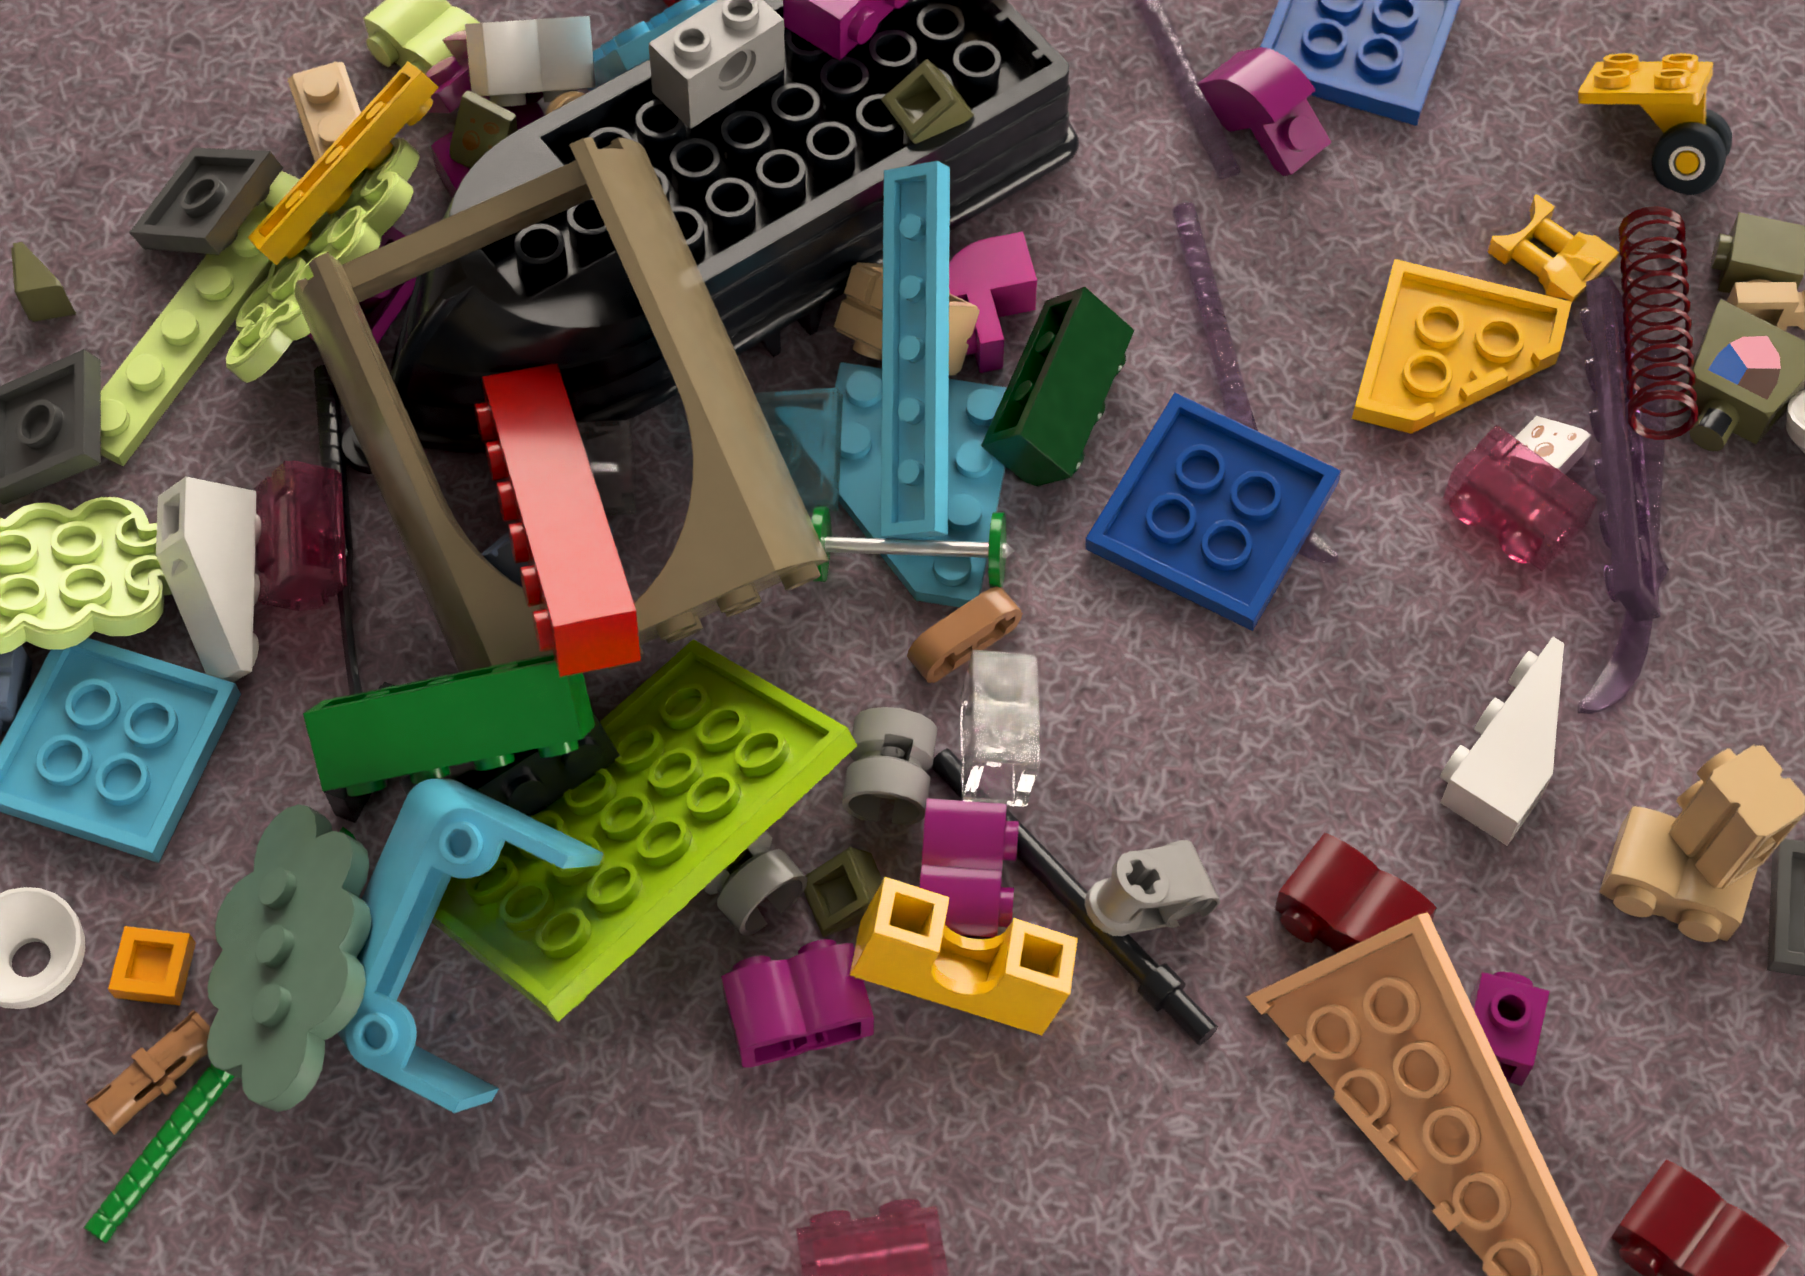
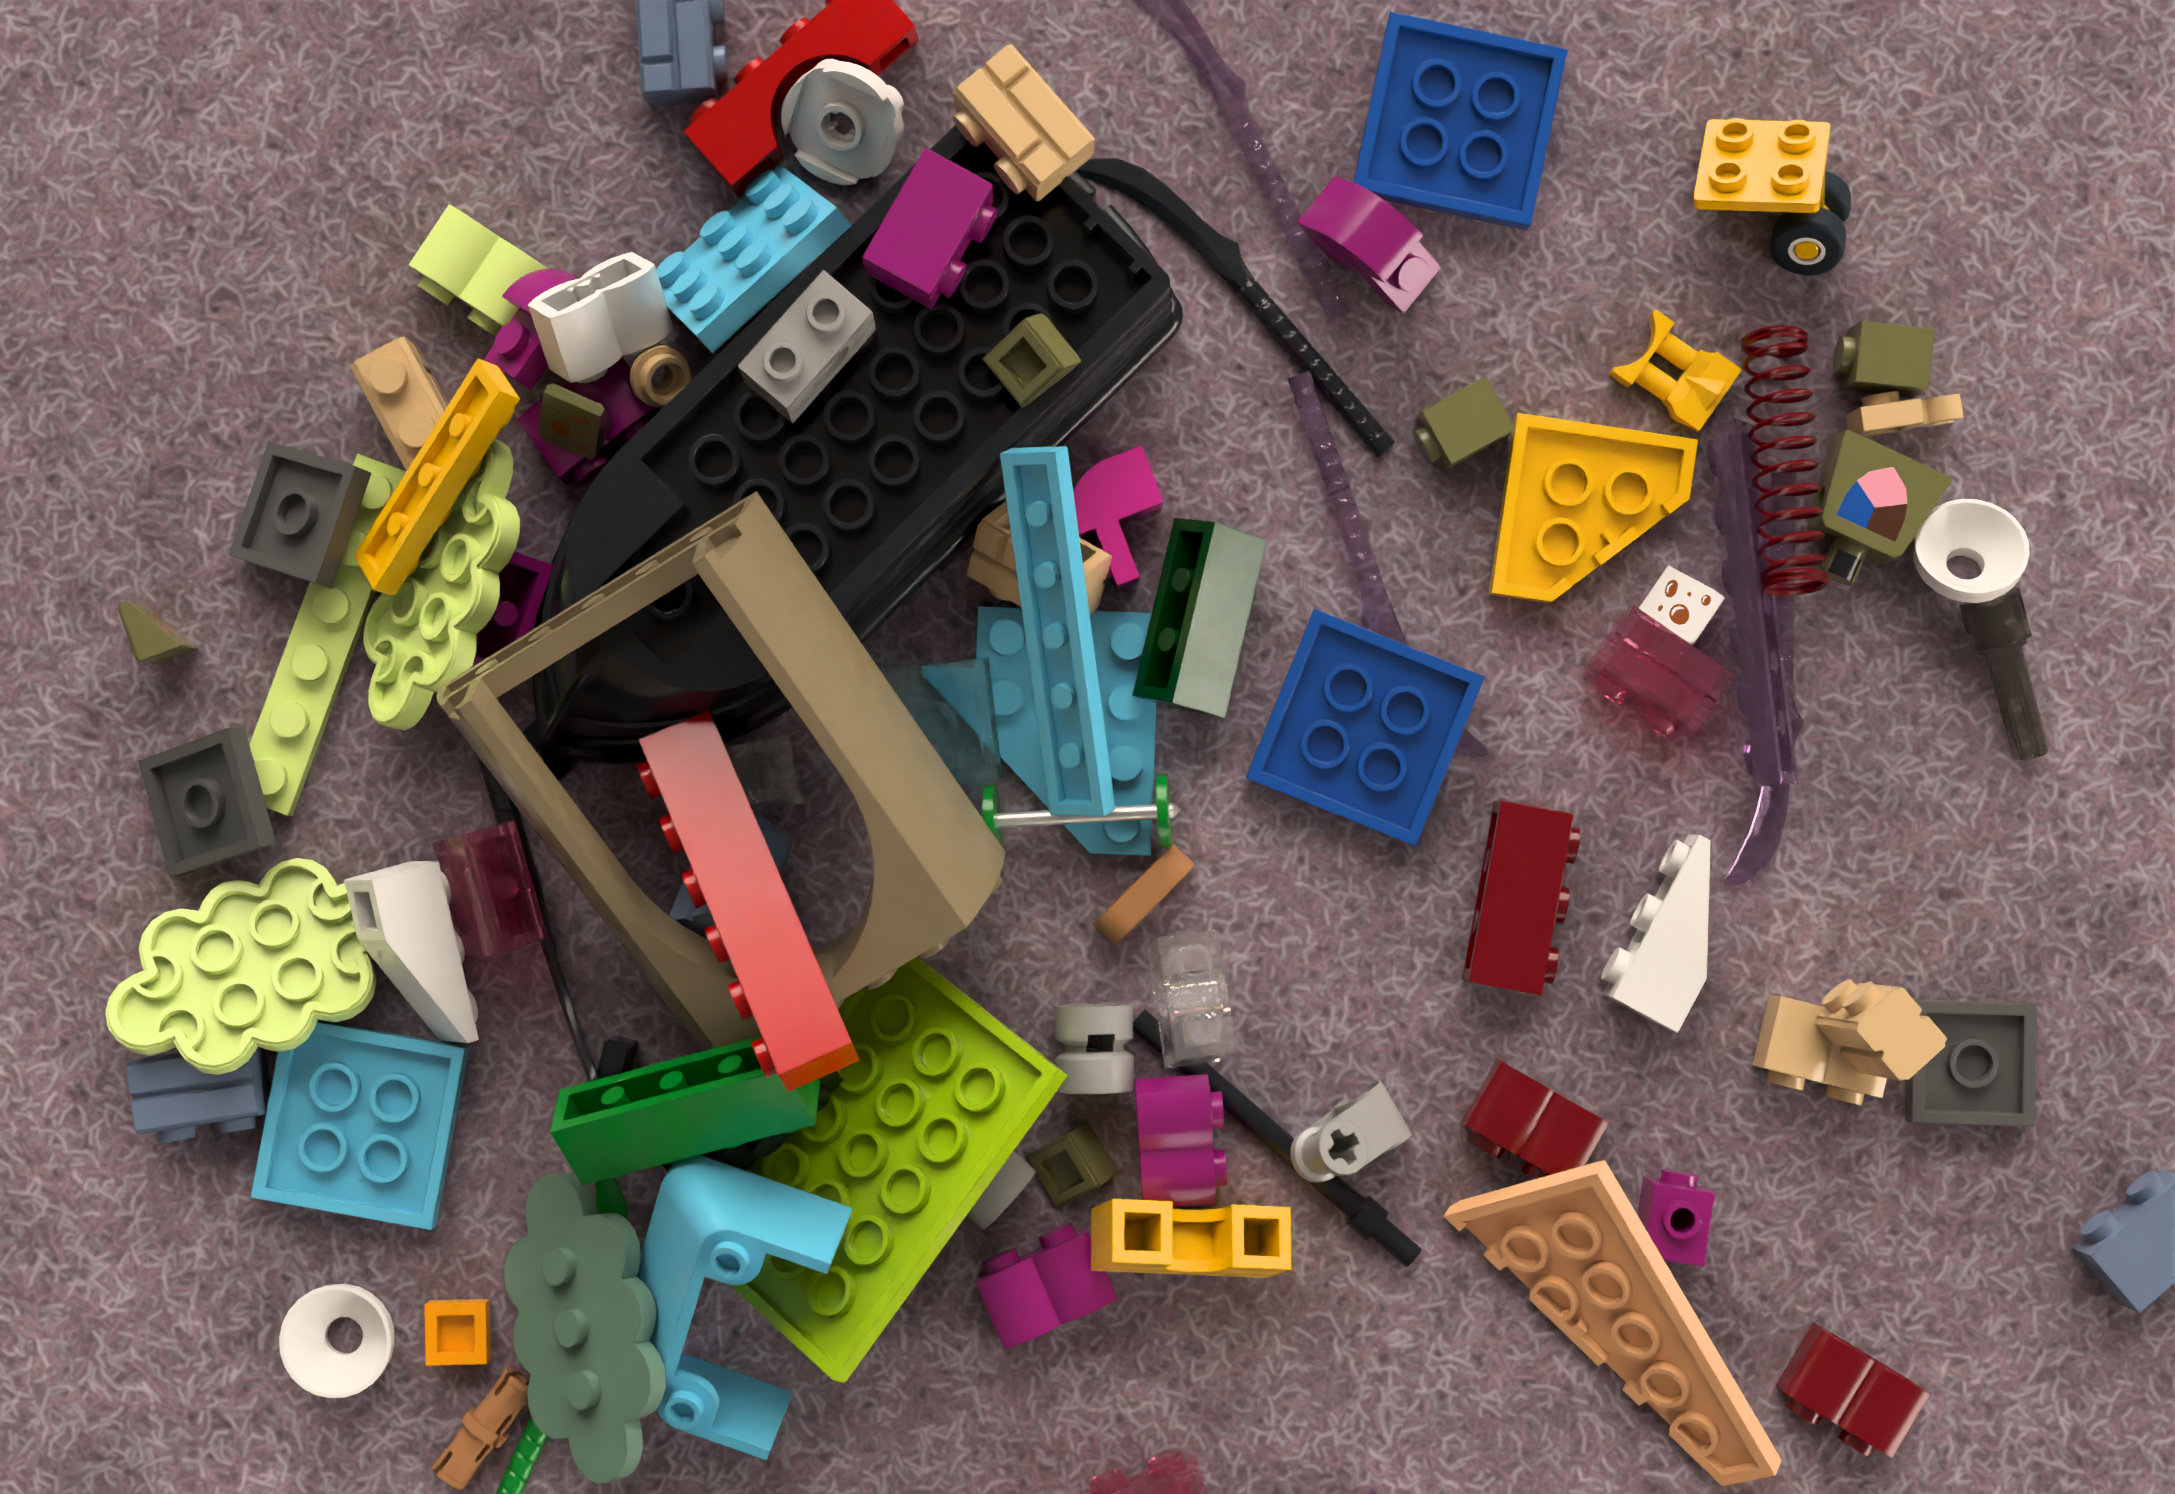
camera: 10 degrees left, 25 degrees up
(1127, 117) = (1226, 259): none -> black piece
(1340, 263) = (1462, 424): none -> olive brick
(1360, 686) = (1520, 897): none -> dark red brick

